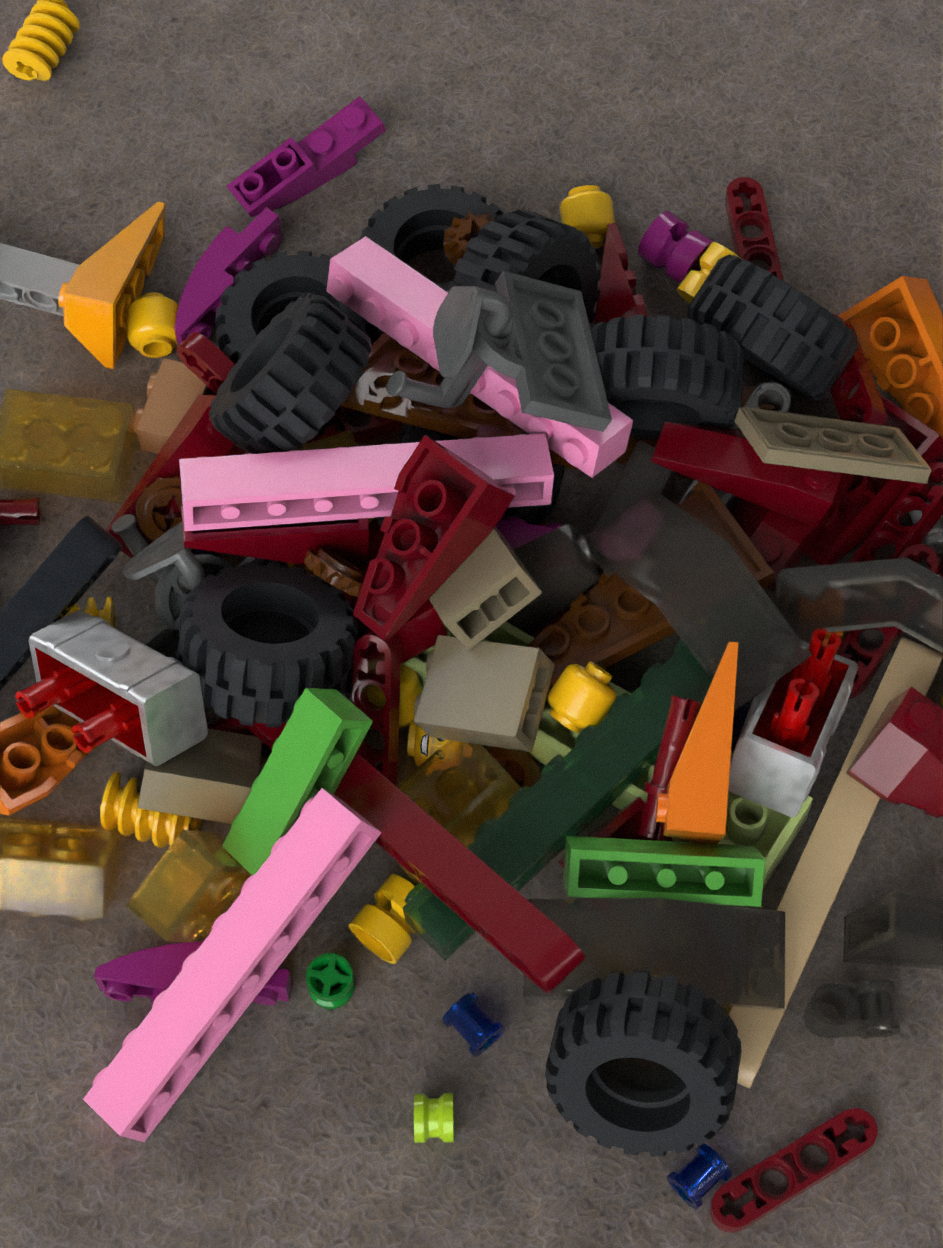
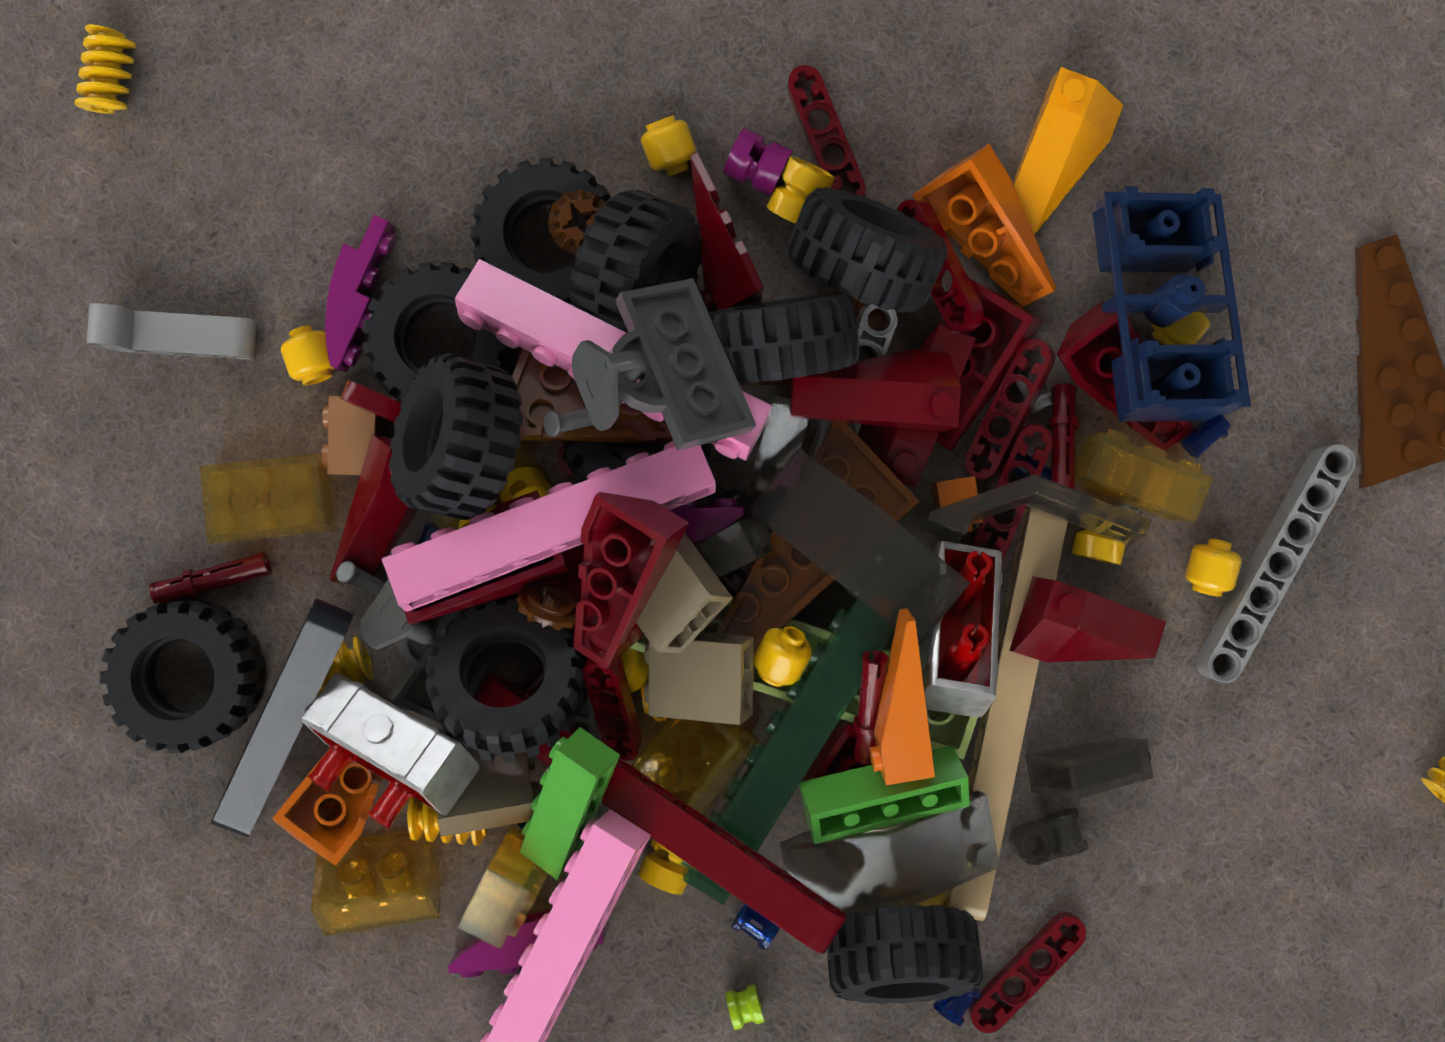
camera: 15 degrees left, 25 degrees up
(109, 282) = (252, 343): light orange wedge -> none
(158, 494) = (365, 552): reddish brown gear -> none
(304, 166) = (397, 147): magenta slope -> none
(330, 970) = (634, 926): green wheel -> none
(832, 445) = (946, 369): dark tan tile -> none

